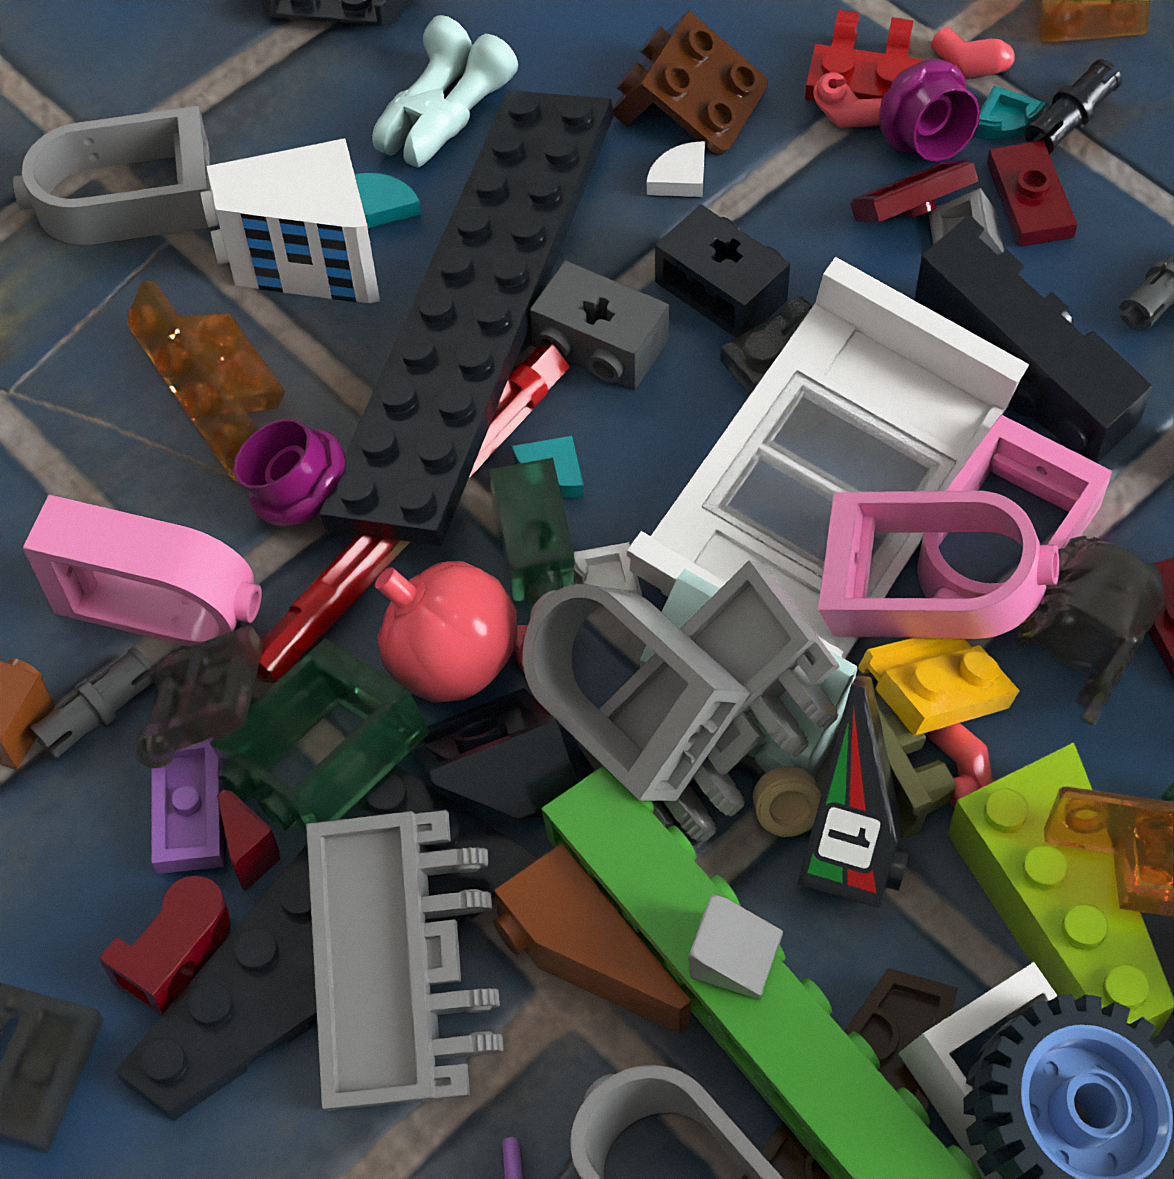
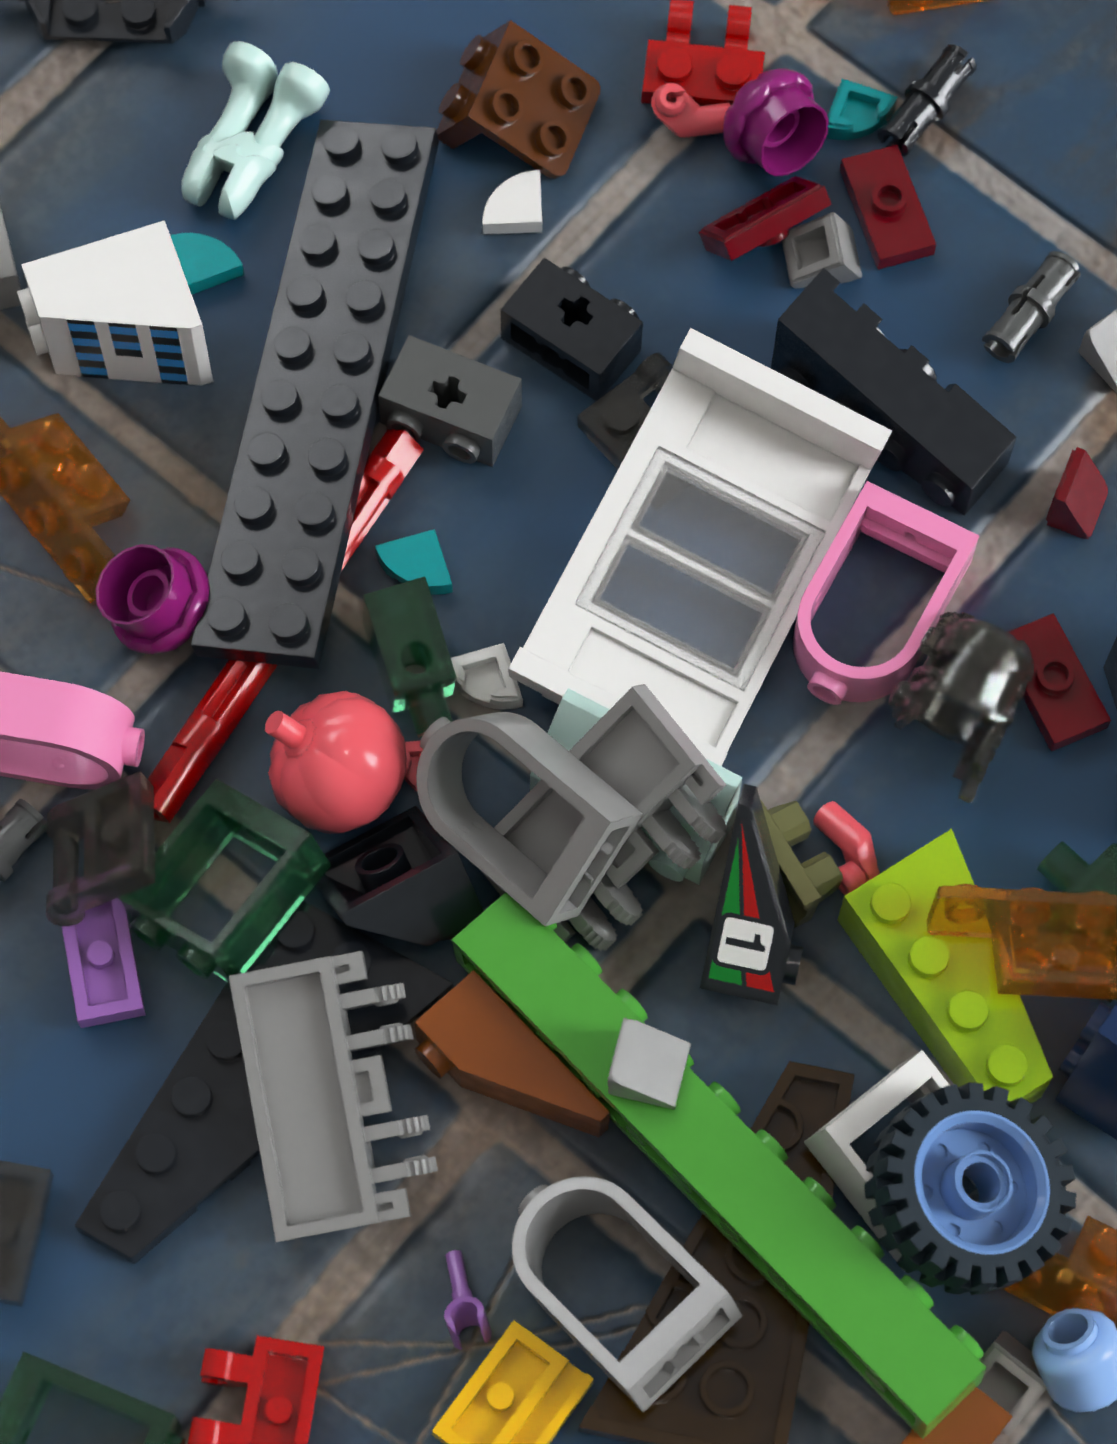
camera: 10 degrees left, 10 degrees up
(173, 946) = (111, 1101): dark red leg -> none
(248, 840) = (168, 986): dark red slope -> none
(786, 801) = (683, 904): tan tile -> none
(849, 553) = (727, 650): bright pink window -> none
(938, 682) = (820, 769): yellow plate -> none
(973, 58) = (820, 43): coral arm -> none

